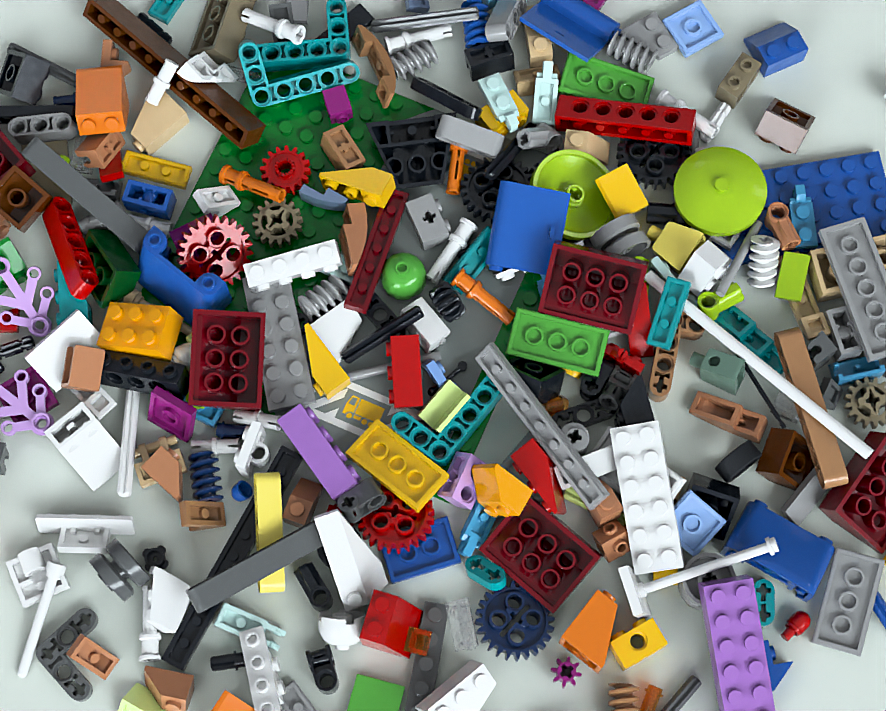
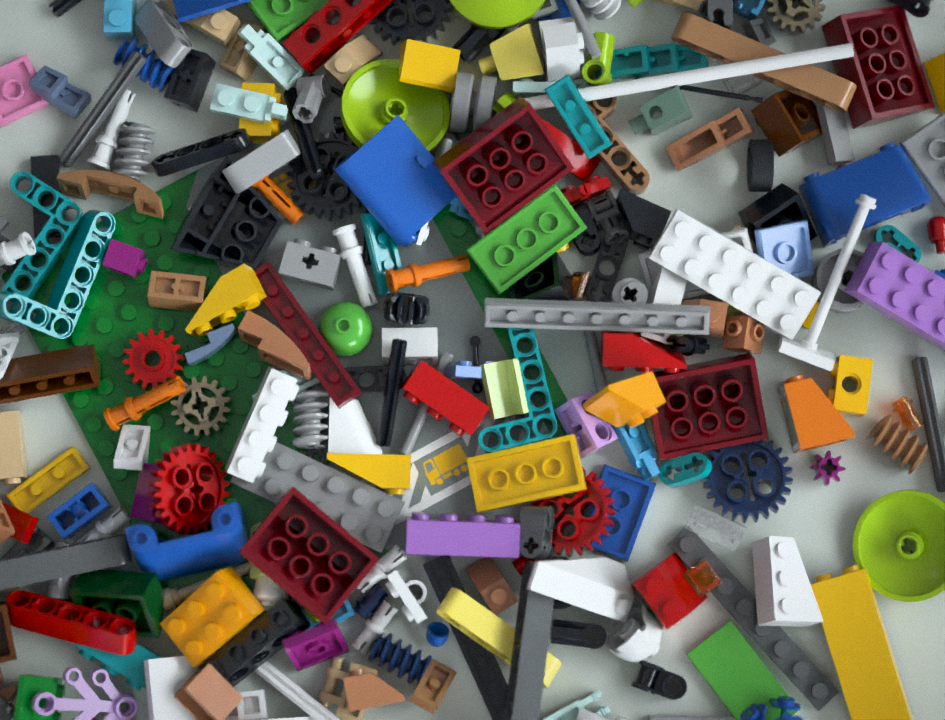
camera: 55 degrees left, 10 degrees up
(573, 507) = (687, 345): none -> black axle

